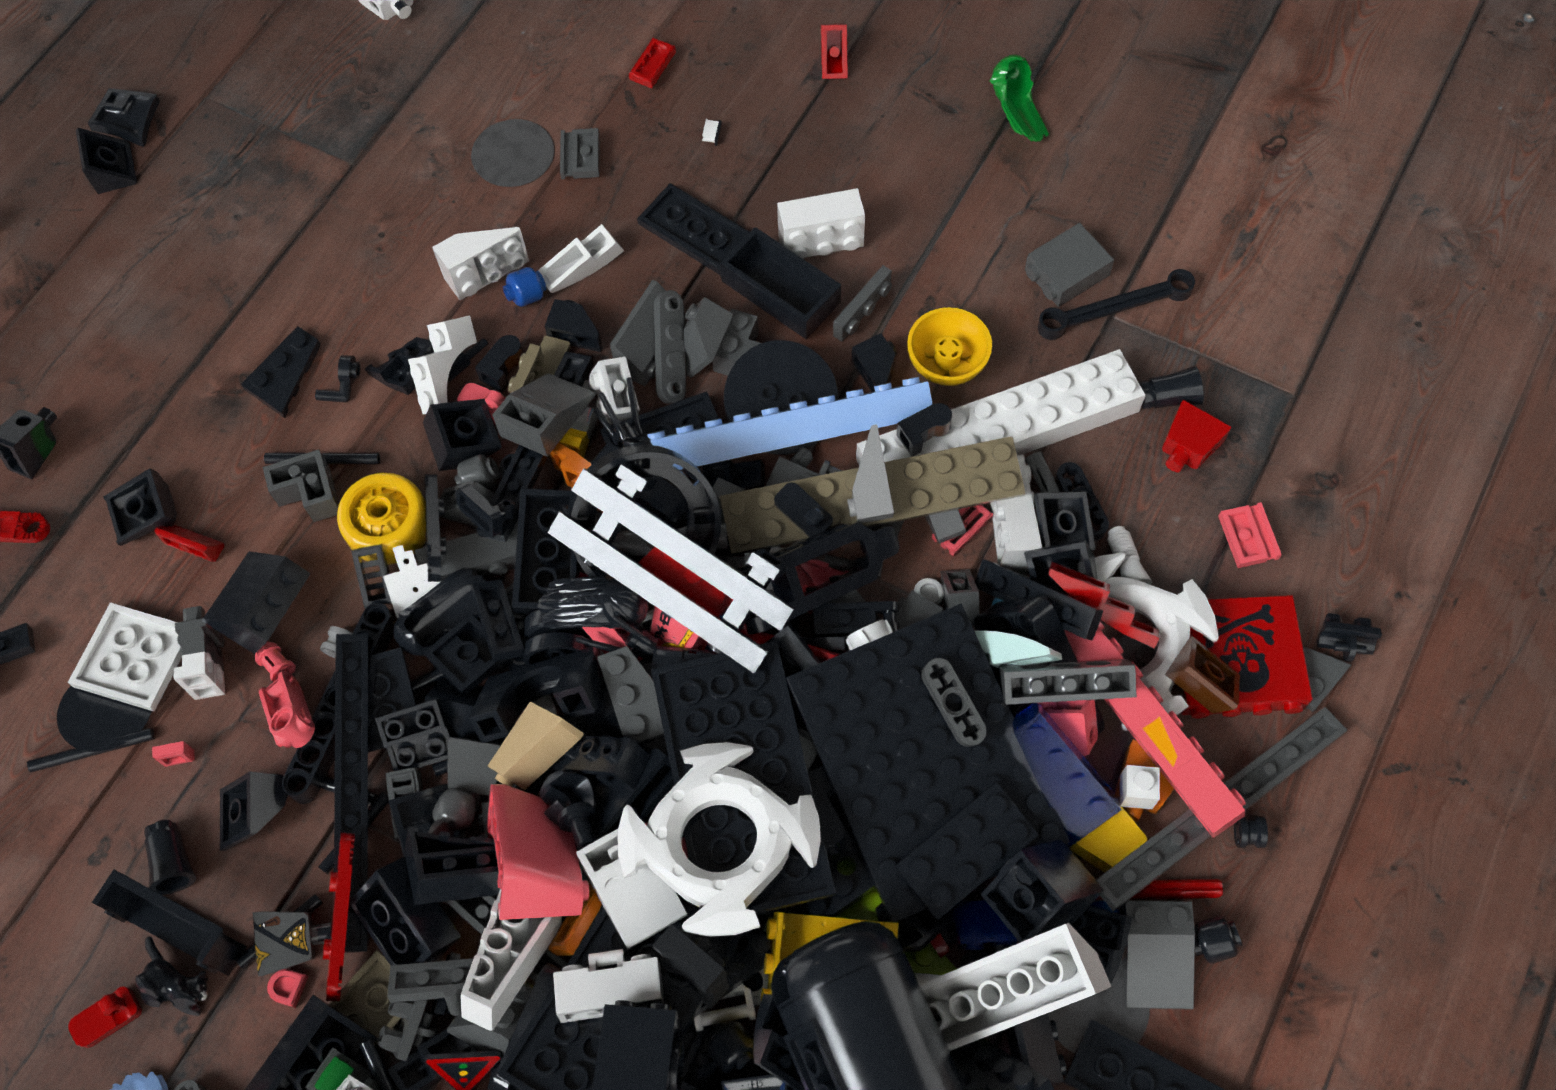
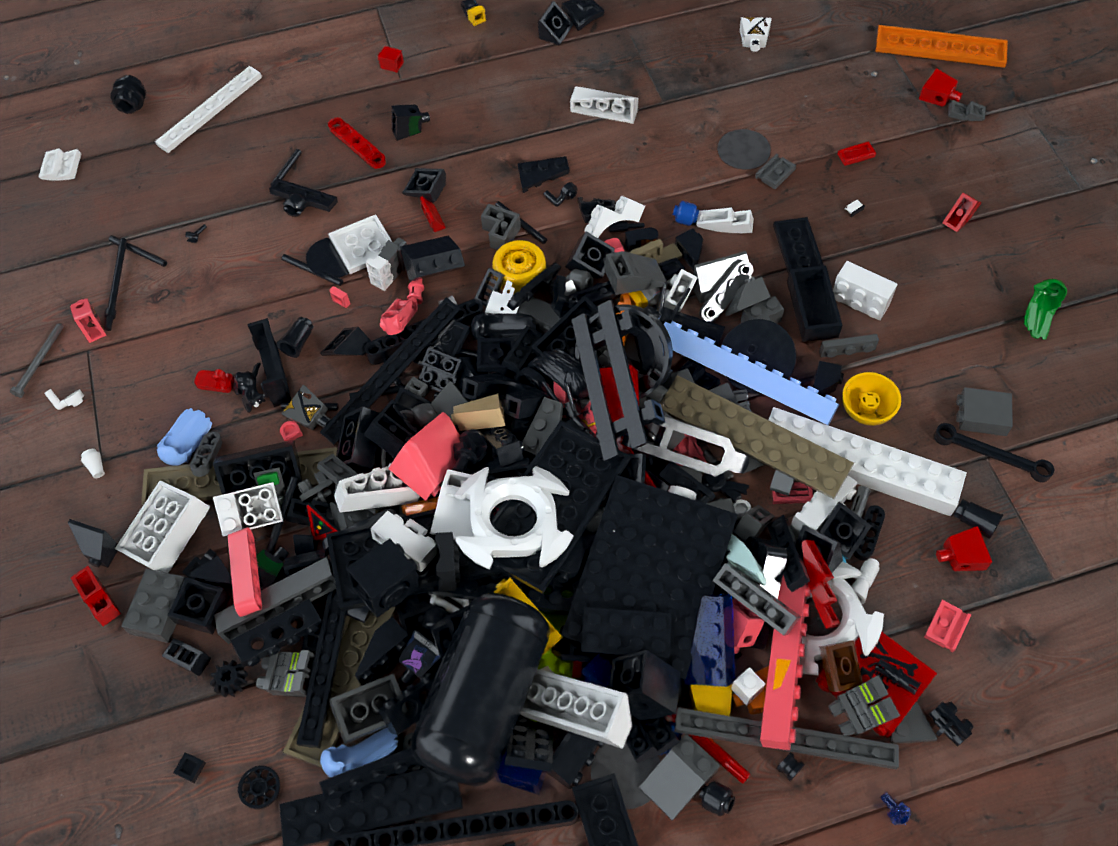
camera: 45 degrees right, 5 degrees down
(281, 221) = (604, 104): none -> white wedge
(335, 947) = (321, 428): red piece -> none
(479, 258) = (676, 184): white slope -> none
(802, 510) = (709, 412): black piece -> none
(871, 490) = (754, 425): light grey slope -> none
(891, 581) = (728, 488): none -> black piece
(923, 426) = (814, 424): black leg -> none
(959, 727) = (695, 542): dark grey beam -> none
(1264, 634) = (897, 676): none -> black pin
(1268, 698) = (859, 714): none -> dark grey hips
(1389, 777) = (898, 813): none -> clear blue plate

